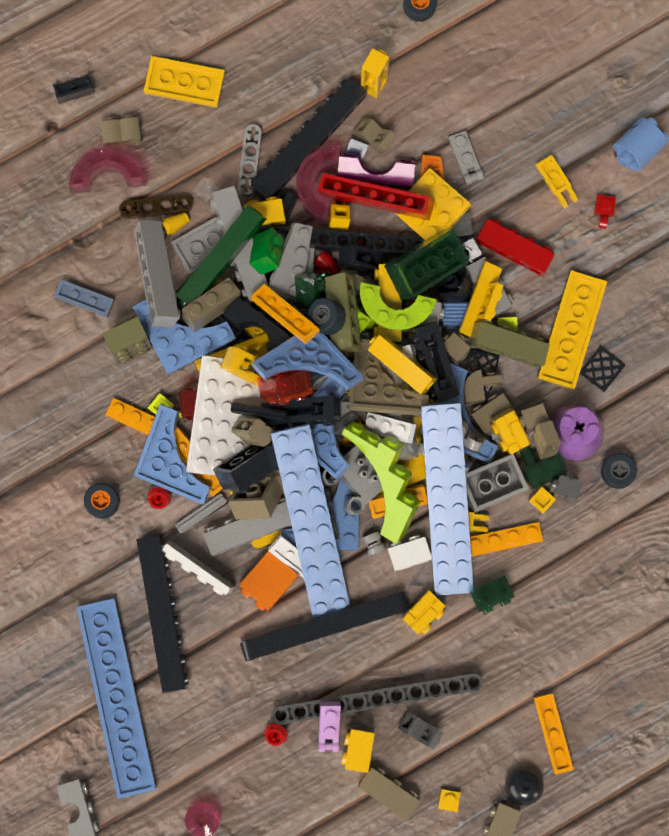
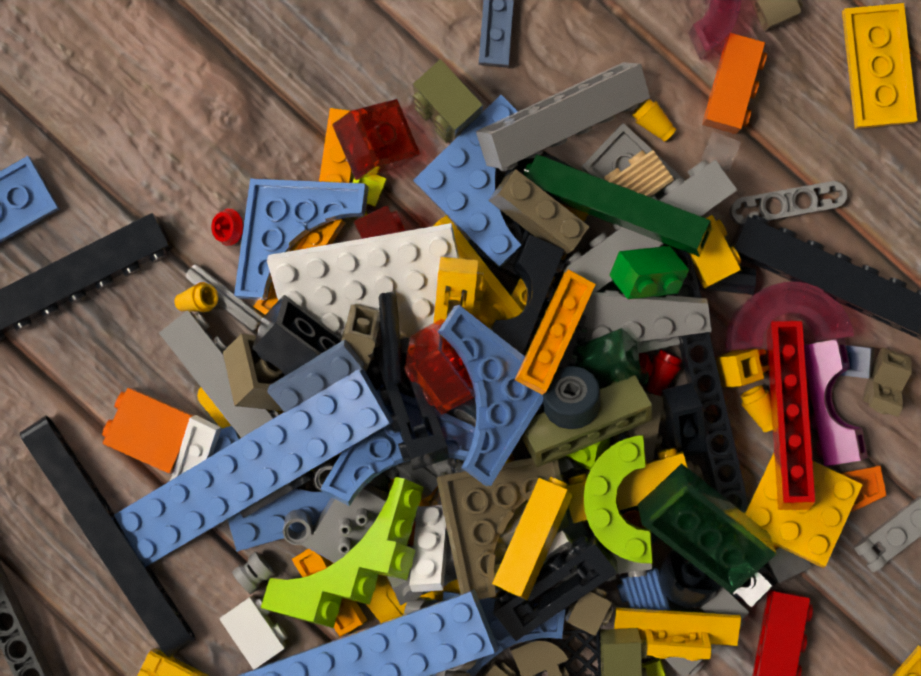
camera: 70 degrees right, 5 degrees up
(101, 500) = (192, 133): black wheel -> none
(134, 390) = (376, 139): none -> clear red brick
(156, 210) = (666, 86): dark brown beam -> none
(168, 169) = (735, 83): none -> orange brick
(197, 528) = (198, 298): none -> yellow cone
(204, 573) = (135, 319): white plate -> none
(207, 238) = (644, 176): none -> tan brick
(267, 461) = (315, 376): none -> sand blue plate
(365, 214) = (758, 405): none -> yellow cone

